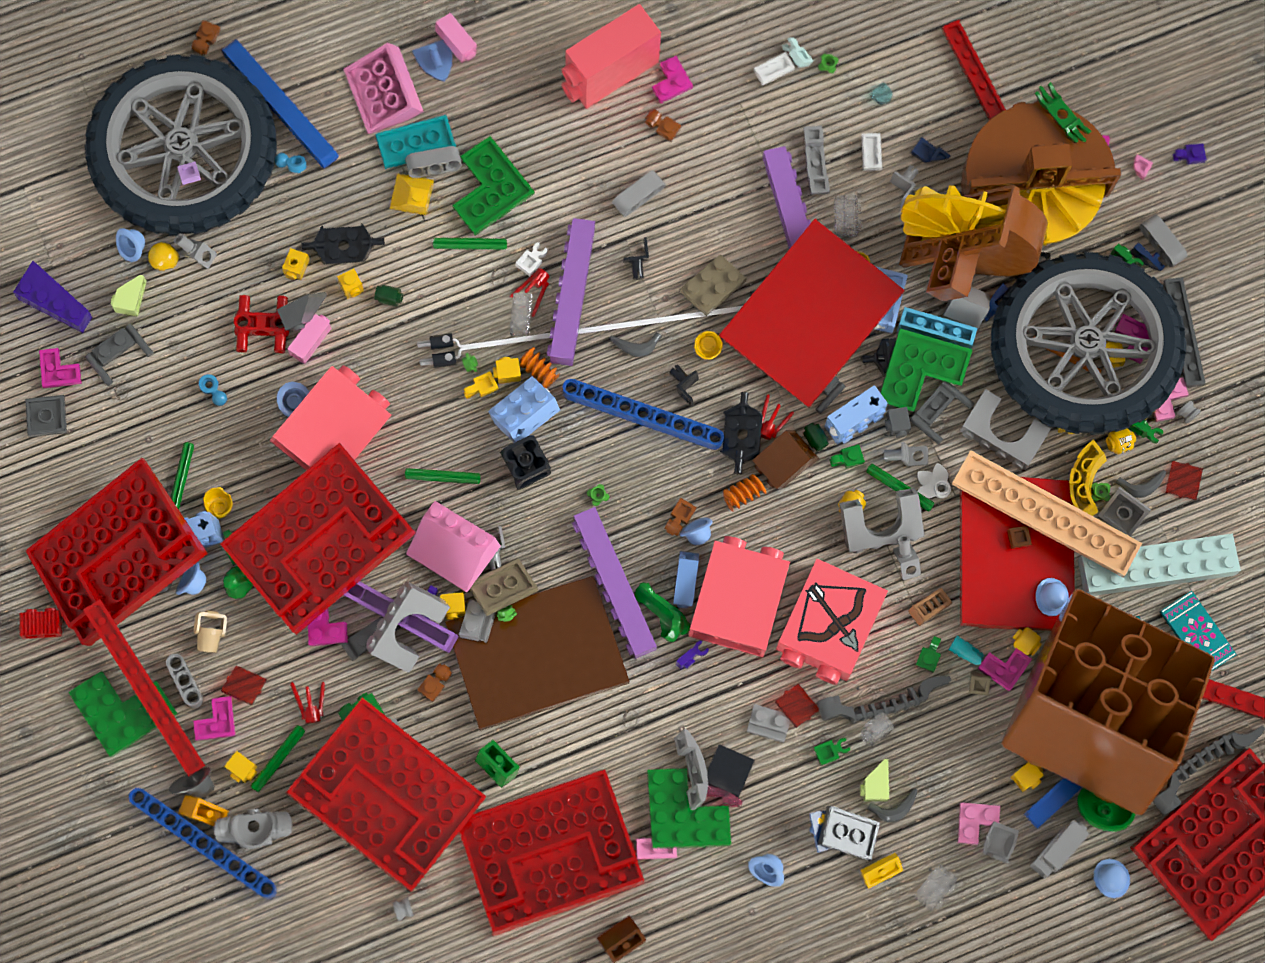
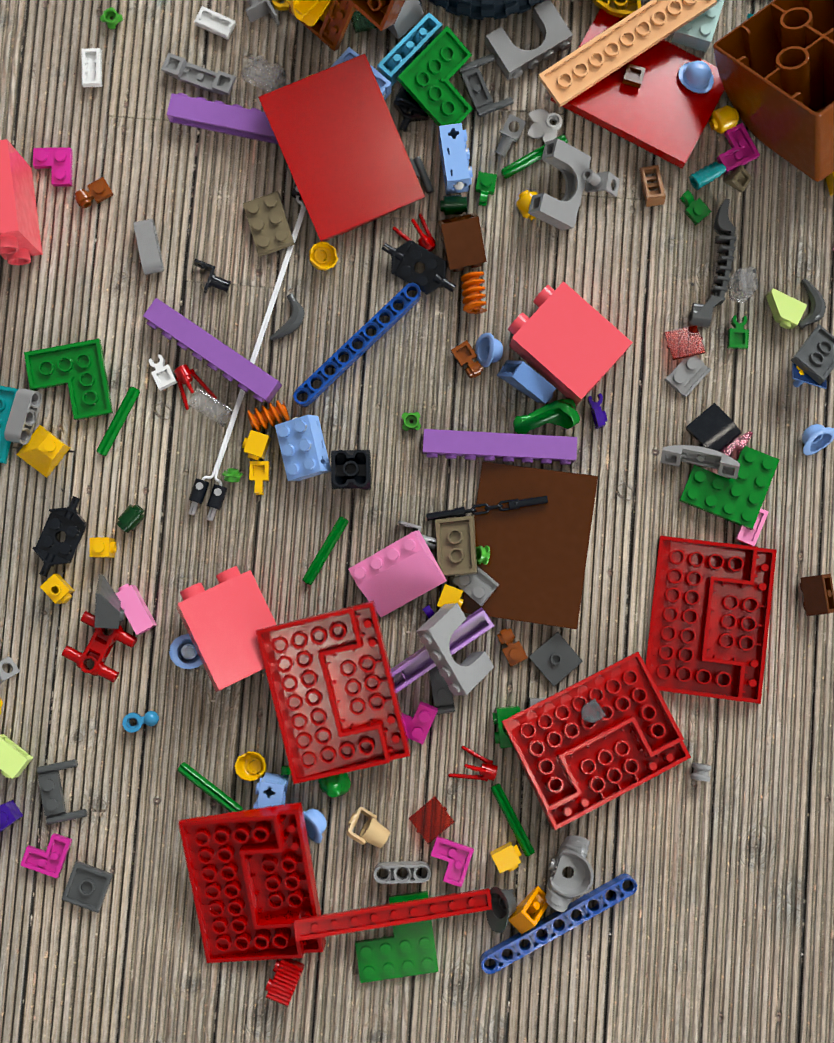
camera: 60 degrees left, 10 degrees up
(409, 776) = (592, 711): none -> clear light blue tile
(444, 727) = (555, 659): none -> dark grey plate
(497, 763) = (614, 627): green brick -> none
(566, 619) = (513, 504): none -> black piece
(685, 382) = (345, 293): black bracket -> none
(798, 54) = (92, 39): light aqua plate -> none
(830, 622) = (629, 275): coral brick -> none
(898, 422) = (477, 127): dark grey brick -> none

